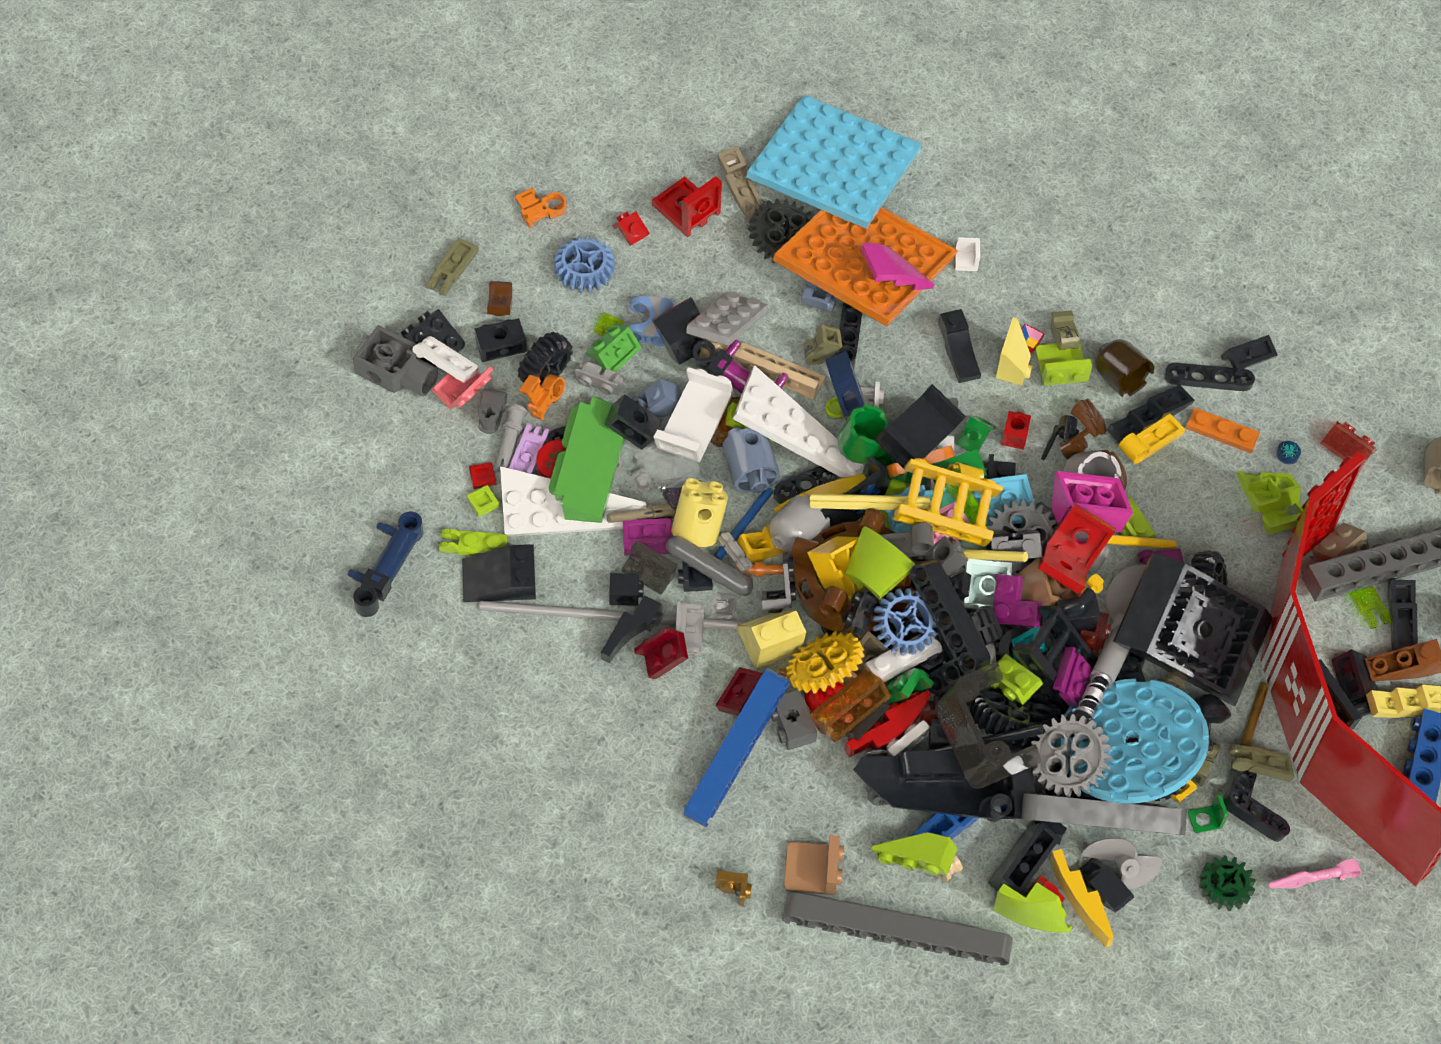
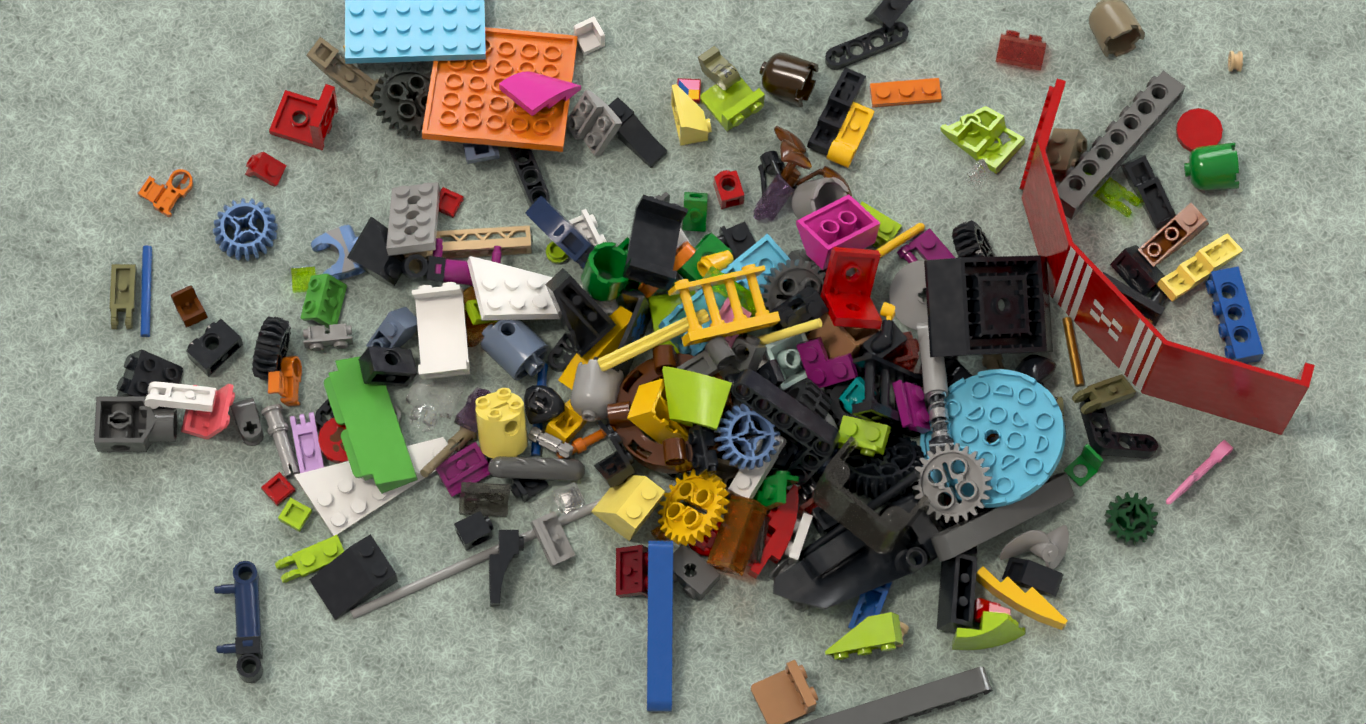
camera: 30 degrees left, 10 degrees up
(474, 272) = (146, 291): none -> blue bar
(663, 651) = (545, 572): dark red bracket -> none
(746, 516) = (542, 404): none -> black piece
(767, 326) = (449, 202): none -> red tile
(821, 346) = (510, 201): olive leg -> none
(821, 454) = (578, 312): none -> black wedge
(928, 320) = (593, 122): none -> light grey slope
(1050, 454) = (772, 199): none -> clear purple hinge
(1288, 452) = (972, 84): tile -> none

